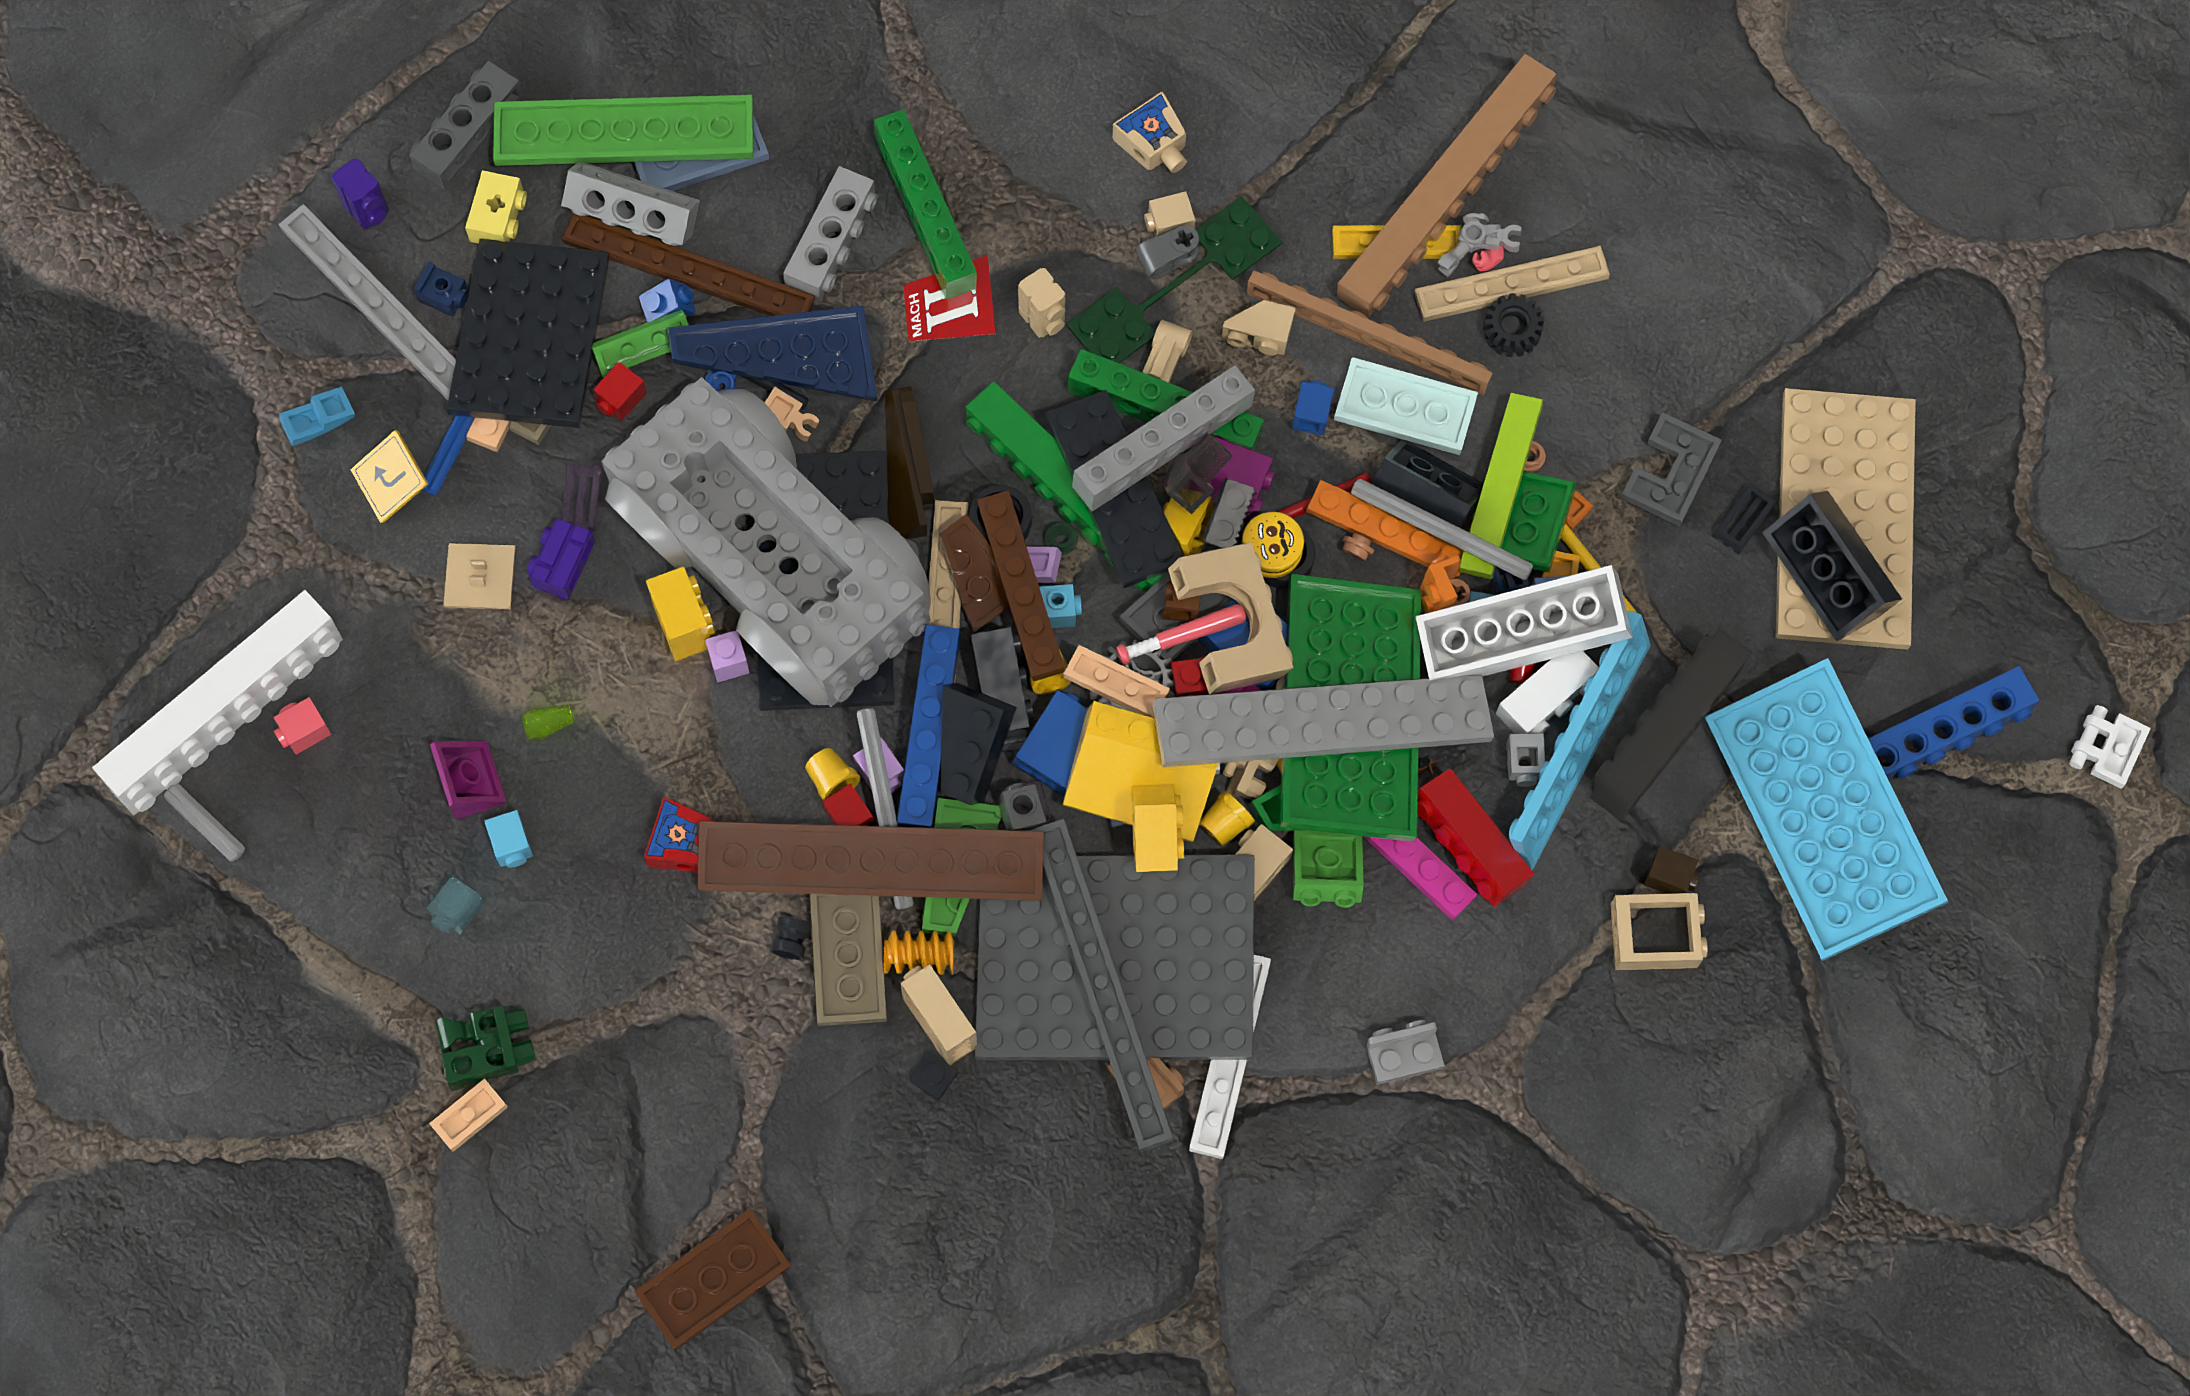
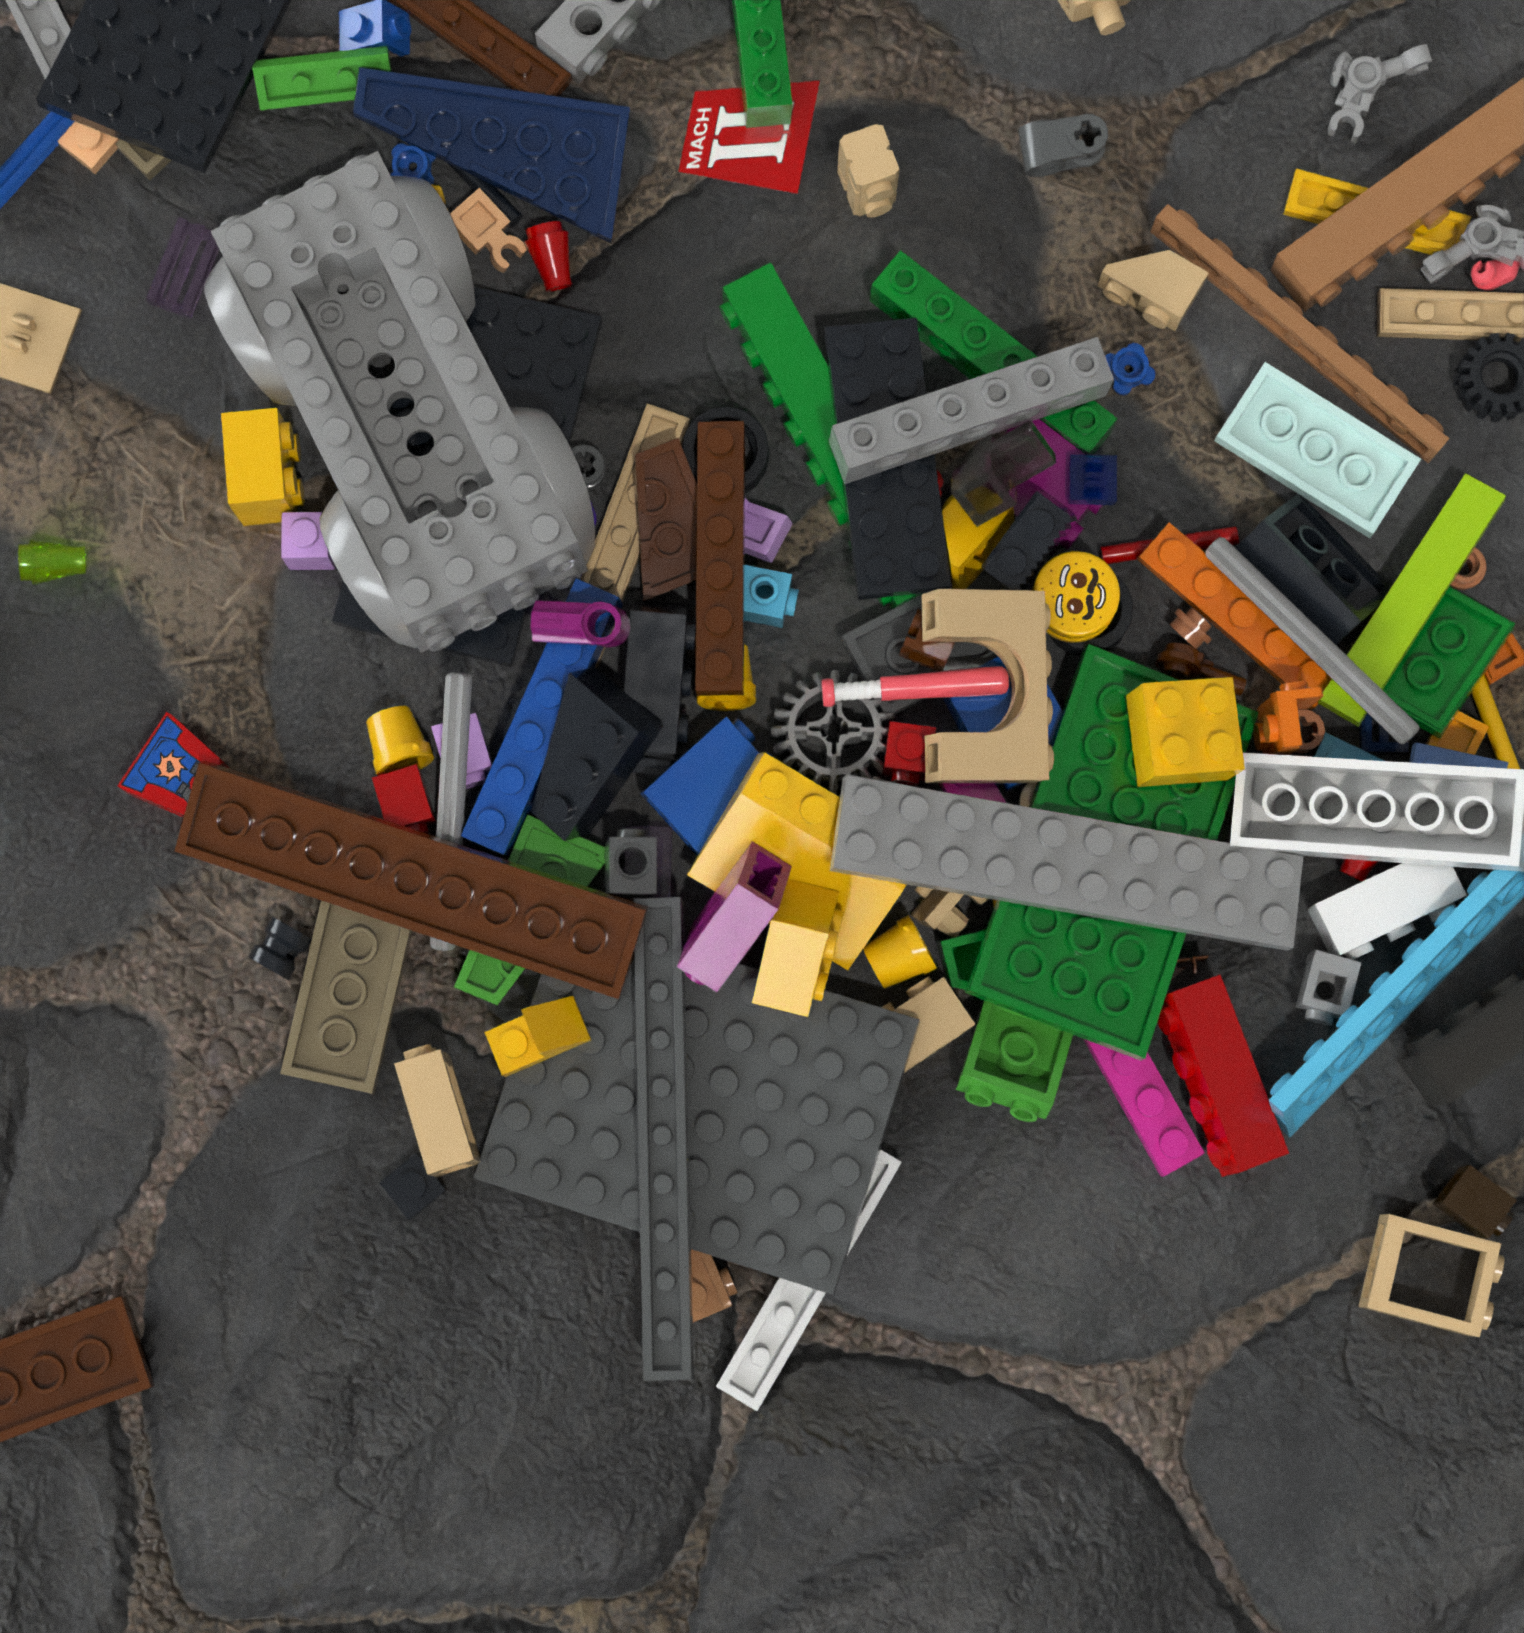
camera: 20 degrees right, 10 degrees up
(561, 558) = (131, 345): dark purple brick -> none
(619, 392) = (273, 137): red brick -> none
(836, 417) = (550, 253): none -> red cone
(906, 465) = (624, 346): dark brown wedge -> none
(918, 952) = (439, 1018): light orange piece -> none
(935, 651) = (576, 623): none -> magenta piece
(991, 944) = (538, 1035): none -> yellow slope
(1066, 530) = (802, 489): clear green plate -> none
(1106, 819) = (734, 917): none -> brick
(1114, 681) = (805, 728): light nougat plate -> none
(1168, 346) = (1022, 276): tan piece -> none
(1169, 213) = (1079, 92): tan brick -> none
(1231, 238) = (1153, 150): dark green hinge -> none
(1259, 464) = (1092, 479): none -> clear blue tile
(1271, 388) = (1135, 357): none -> blue plate
(1313, 407) = (1190, 417): blue brick -> none
(1359, 156) = (1362, 80): none -> light grey piece
(1363, 571) = (1186, 662): none -> reddish brown plate
(1375, 612) = (1185, 732): none -> yellow brick
(1404, 1052) = (1041, 1340): light grey bracket -> none

